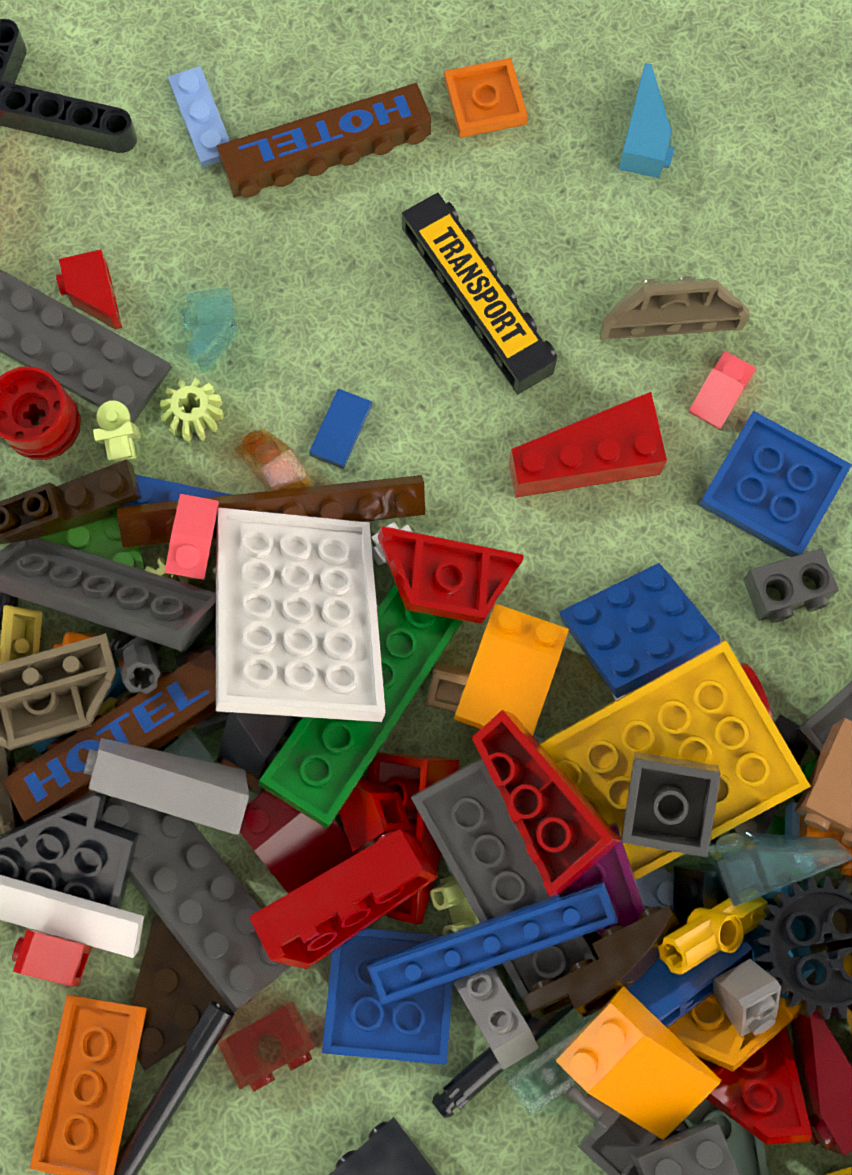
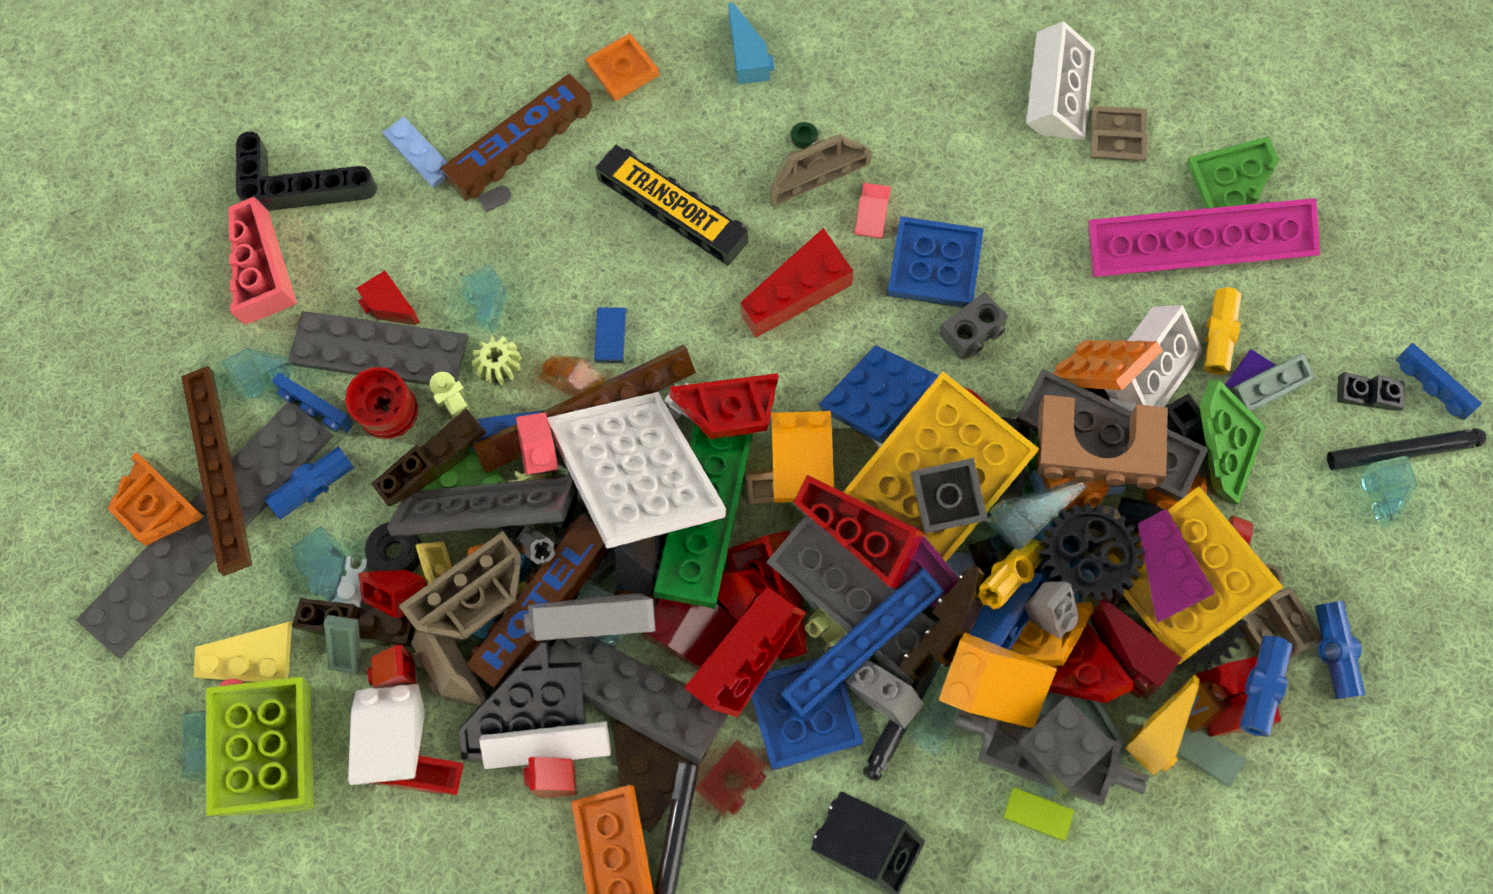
camera: 15 degrees left, 5 degrees down
(270, 206) = (495, 198): none -> dark grey piece
(674, 263) = (804, 134): none -> dark green tile

